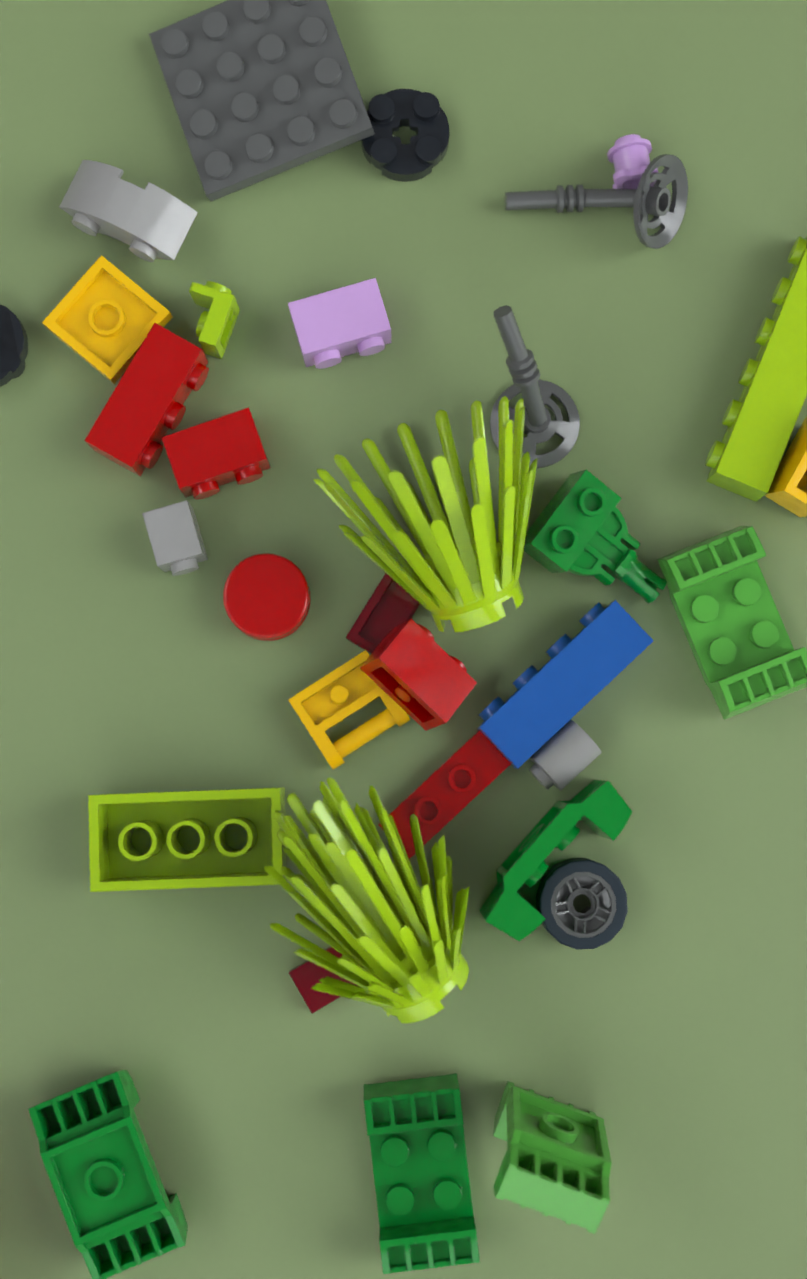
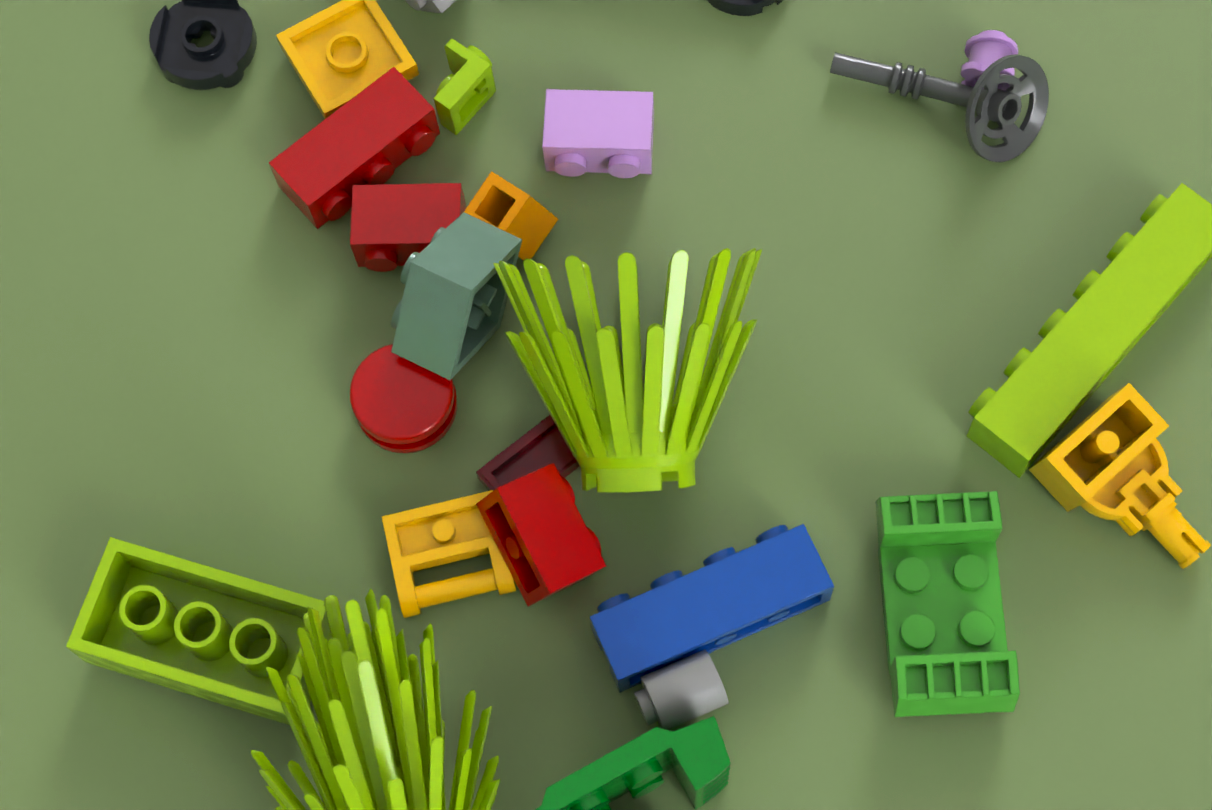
camera: 30 degrees right, 15 degrees down
(175, 538) = (327, 300): light grey brick -> none
(281, 506) = (453, 295): none -> sand green brick
(297, 423) = (512, 211): none -> light orange brick
(449, 790) = (530, 688): red plate -> none
(536, 395) = (785, 289): dark grey dish -> none
(589, 537) = (800, 449): green brick -> none

